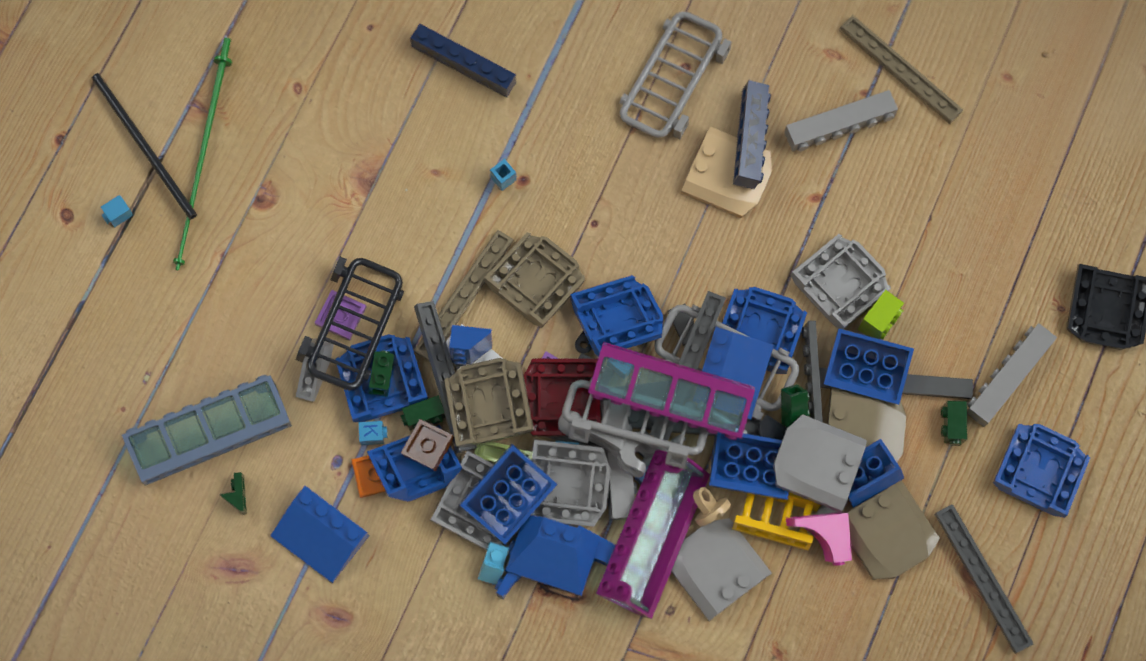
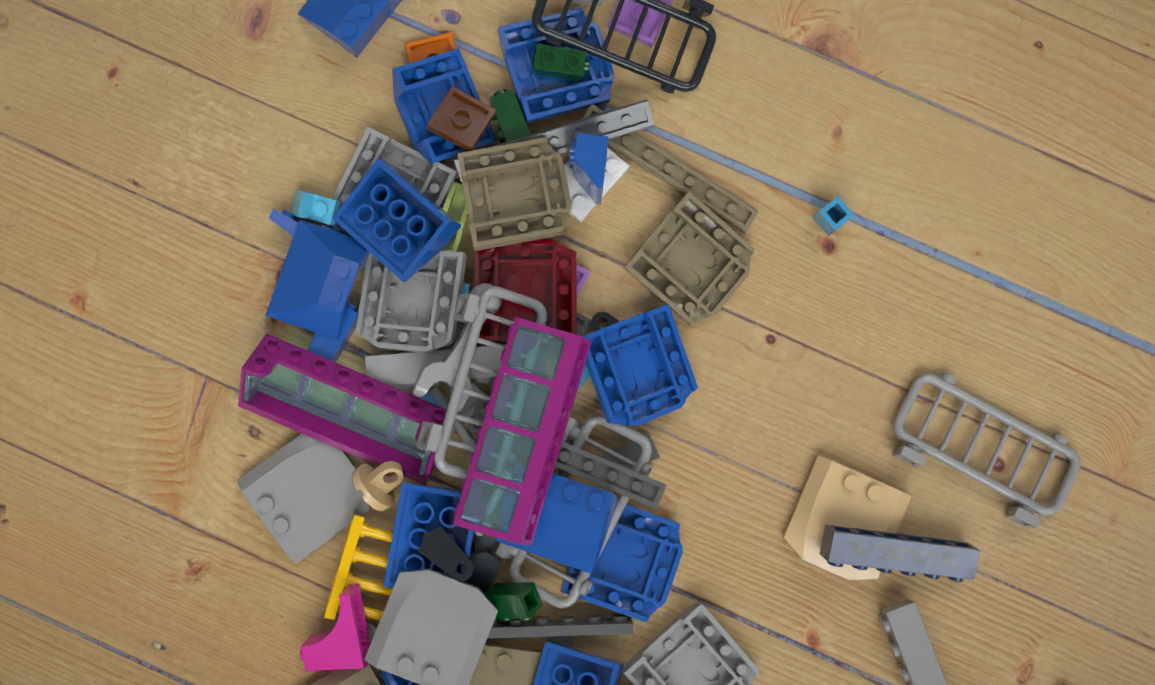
camera: 85 degrees right, 10 degrees up
(372, 433) = (484, 55): dark azure brick -> none
(463, 60) = (995, 163): dark blue brick -> none
(761, 452) = (445, 553): none -> black piece

